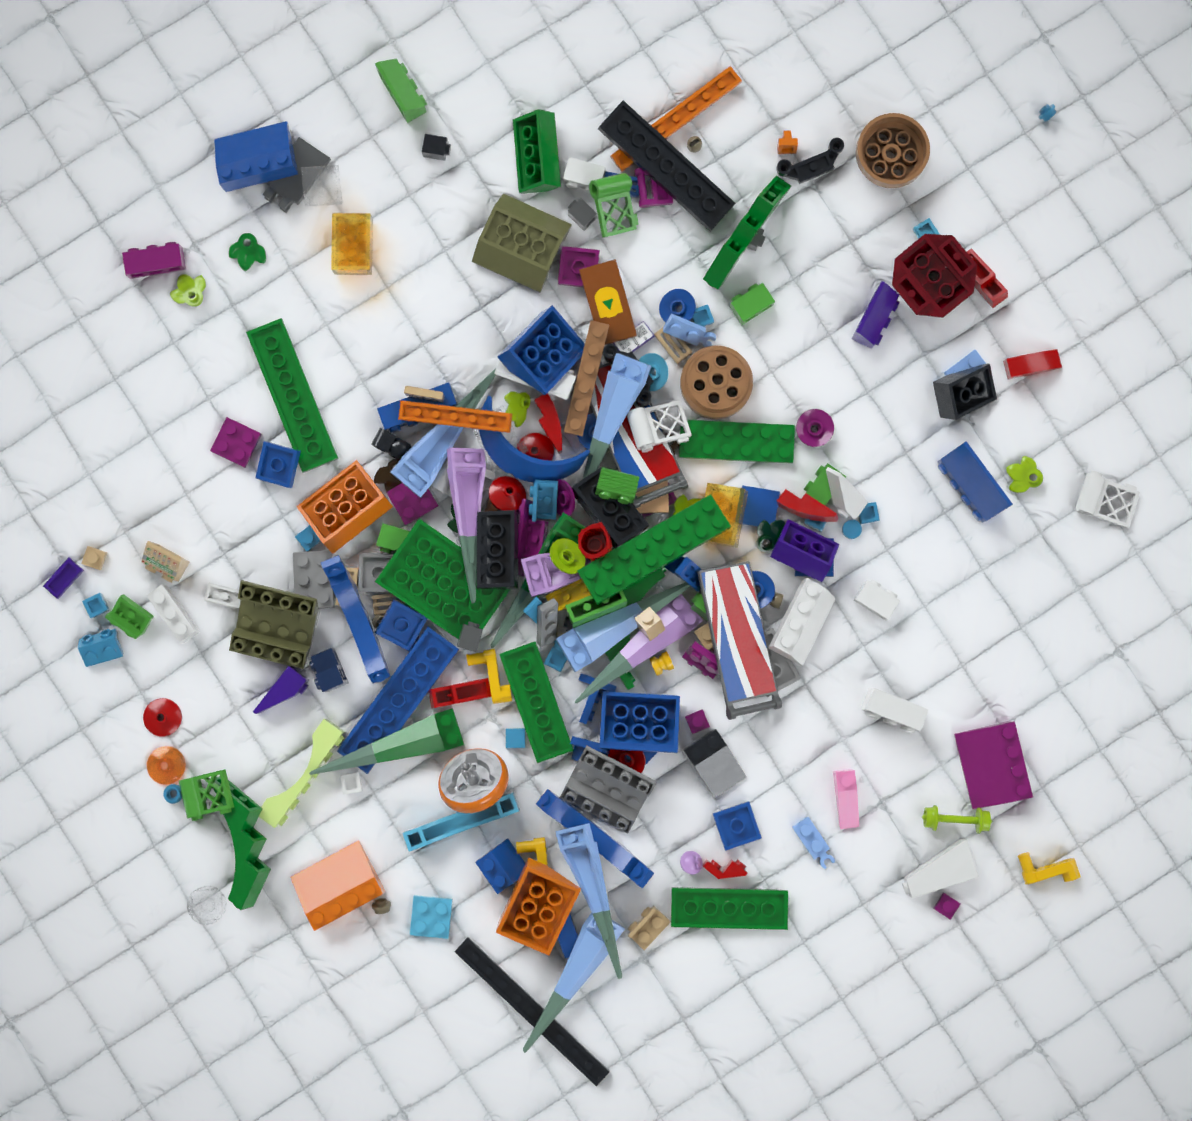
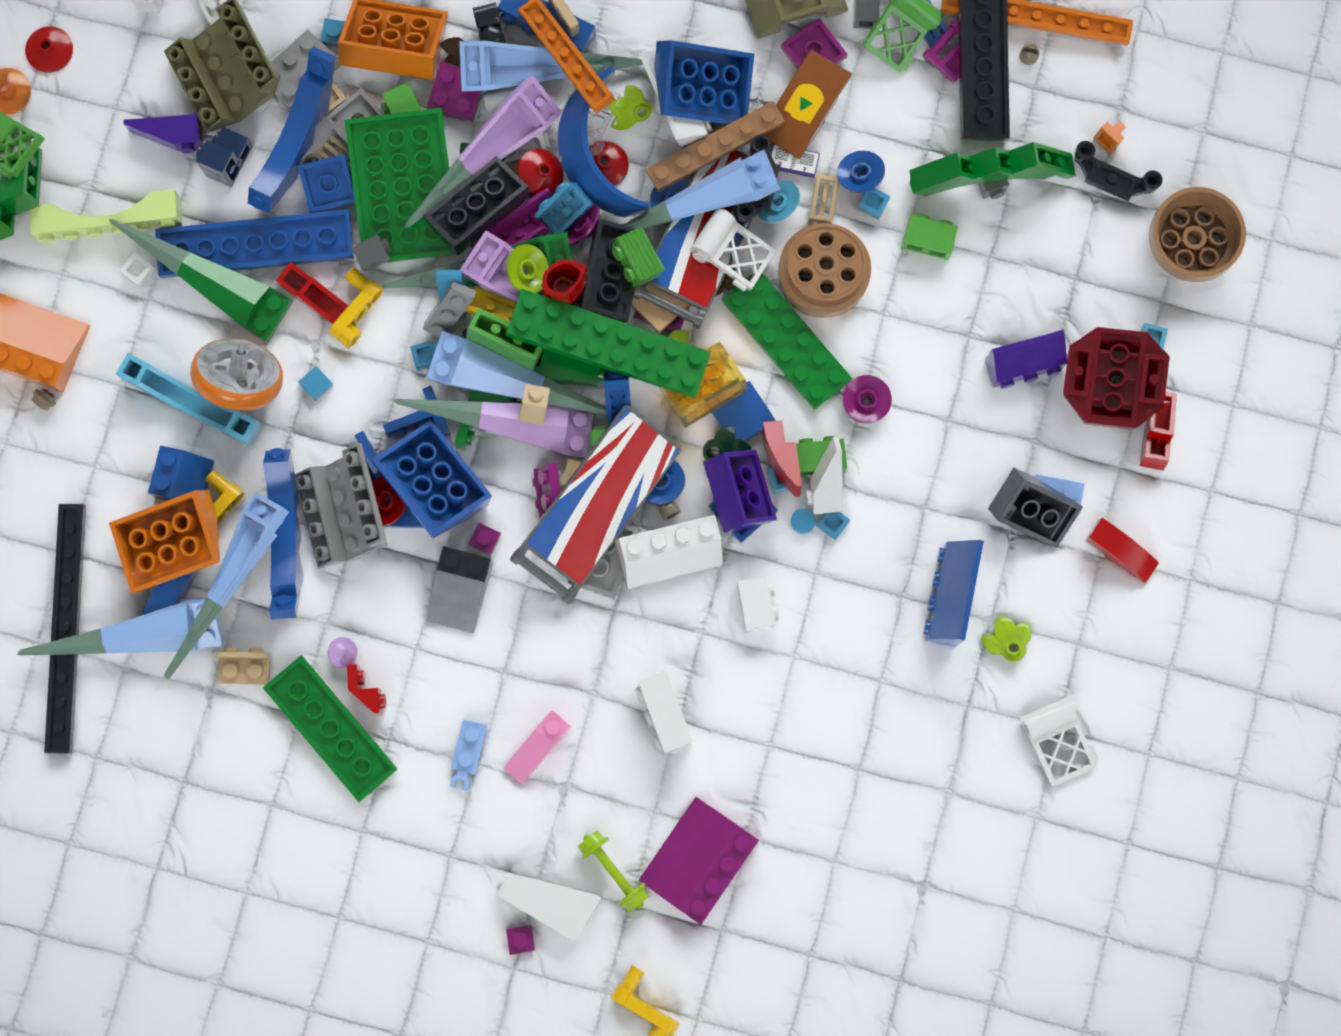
camera: 45 degrees right, 5 degrees down
(431, 916) = (74, 455): medium azure plate -> none
(536, 702) = (367, 371): green plate -> none
(550, 421) = (645, 151): red slope -> none
(663, 662) = (511, 455): yellow wheel -> none
(688, 331) = (847, 200): light blue plate -> none
(737, 825) = (417, 664): blue plate -> none

